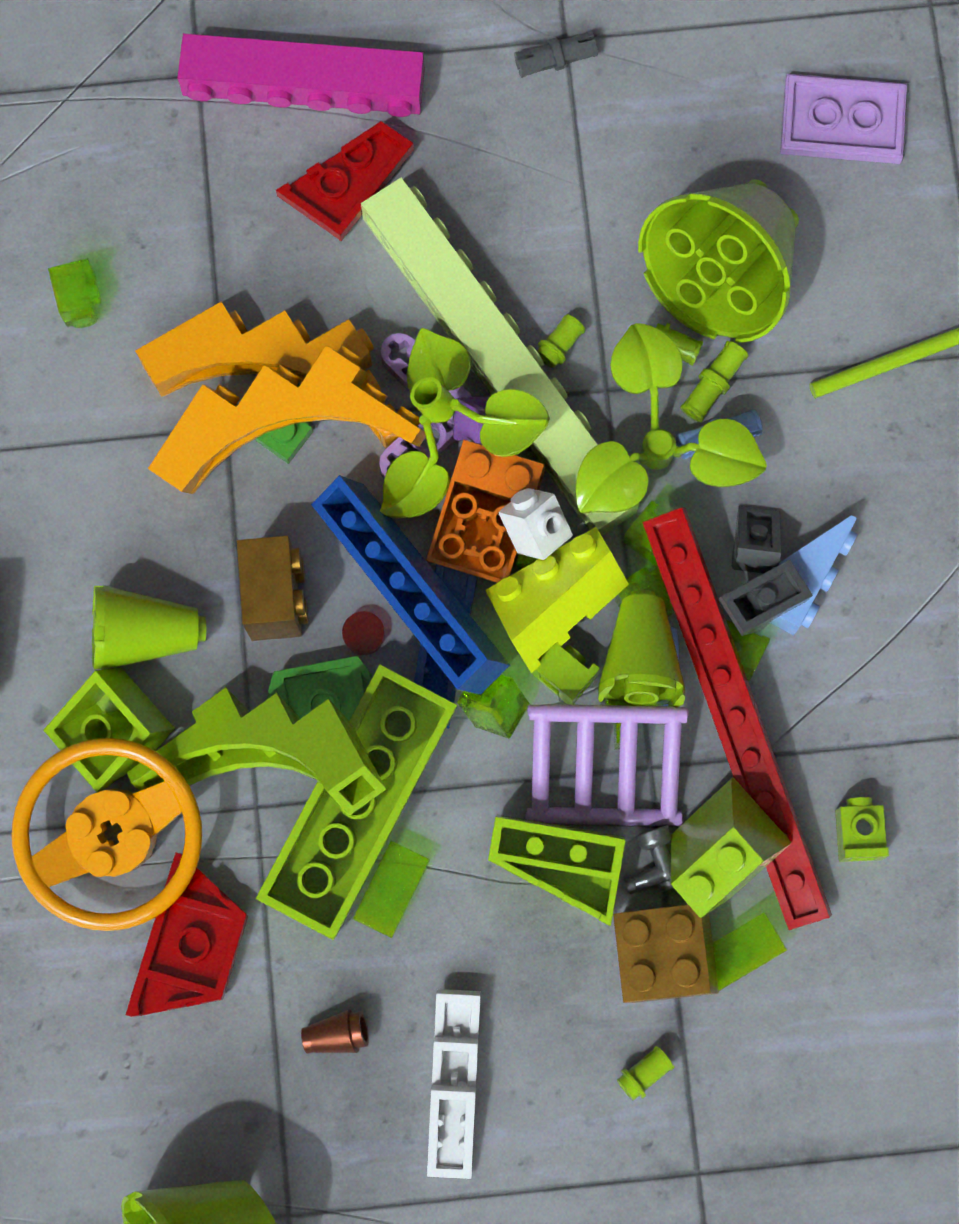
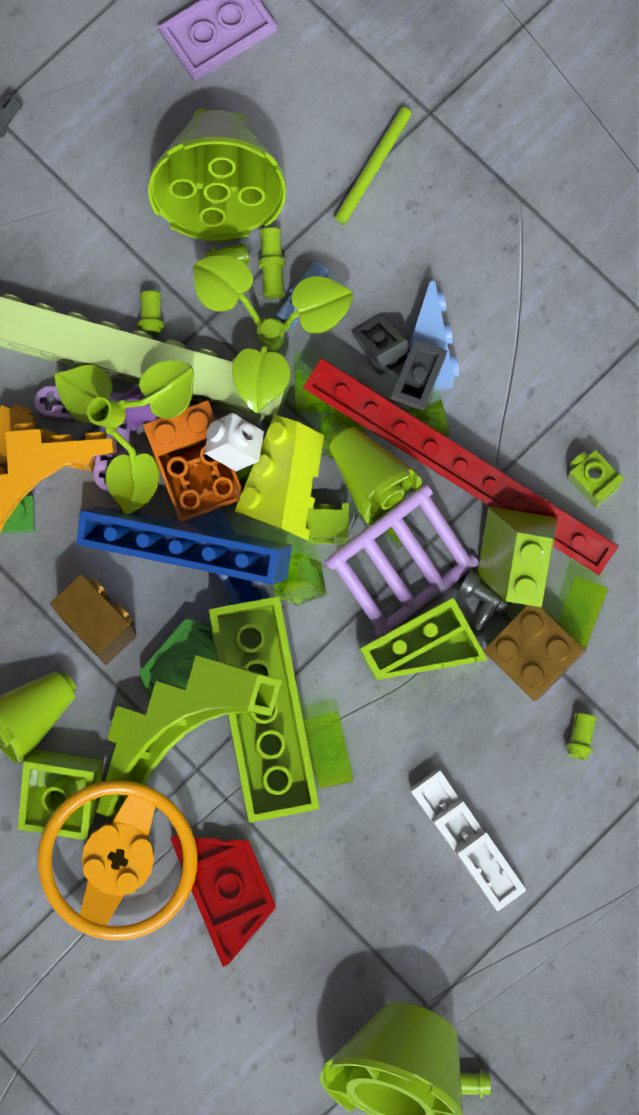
camera: 35 degrees left, 0 degrees up
(336, 1034) = (368, 869): copper cone -> none
(363, 633) = (175, 602): clear red tile -> none

